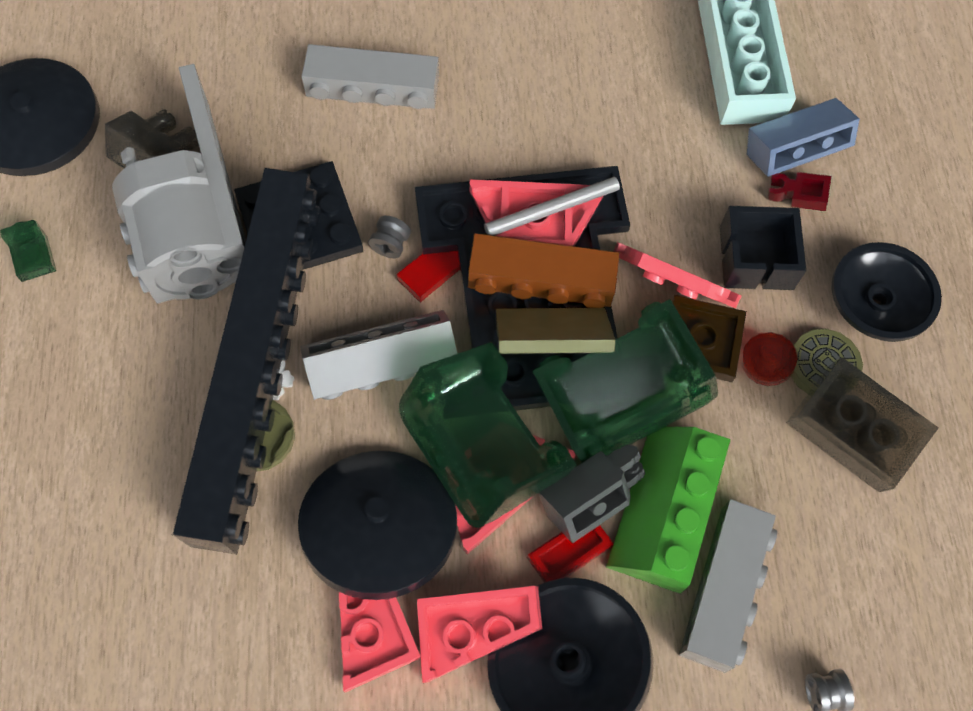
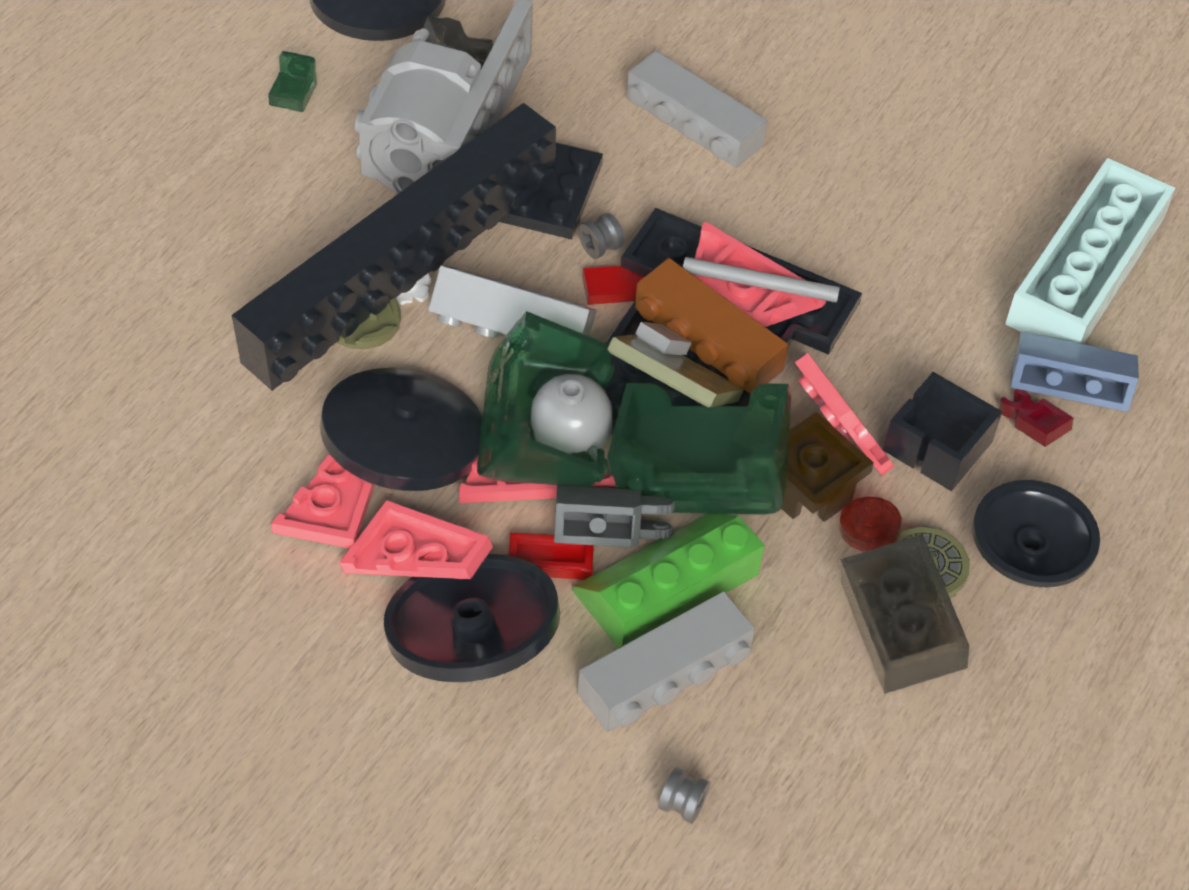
camera: 35 degrees right, 15 degrees down
(507, 426) = (571, 414): none -> light grey cylinder
(521, 307) = (663, 338): none -> light grey tile

